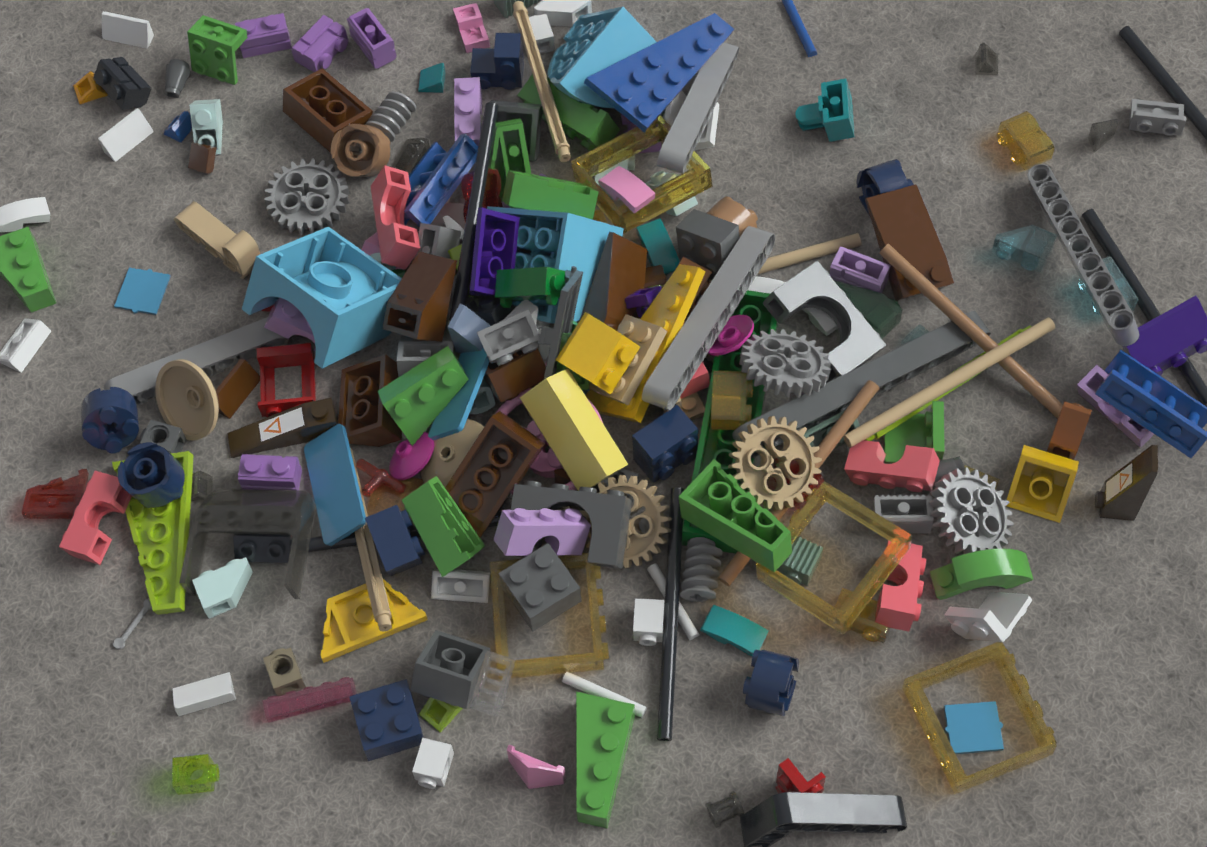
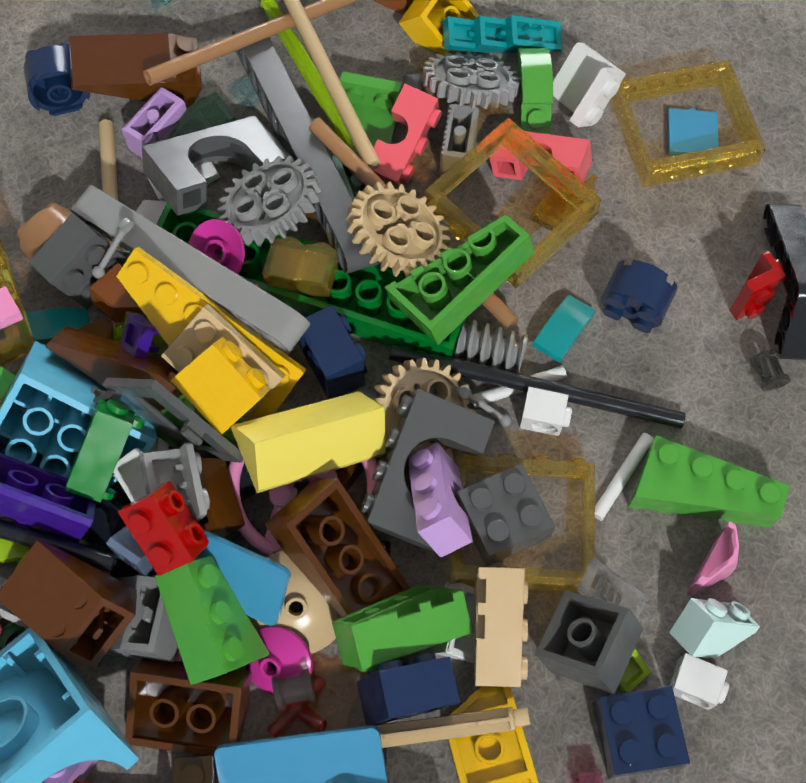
camera: 85 degrees left, 5 degrees up
(388, 465) = (293, 689): none -> clear smoke bush
(450, 596) = (500, 627): none -> tan wedge
(476, 338) = (164, 528): none -> red bracket
(478, 770) = (712, 627): none -> light aqua slope
(647, 548) = (464, 392): none -> light grey hinge
(730, 262) = (125, 226): none -> light grey hinge
(1036, 539) = (501, 35): none -> teal slope

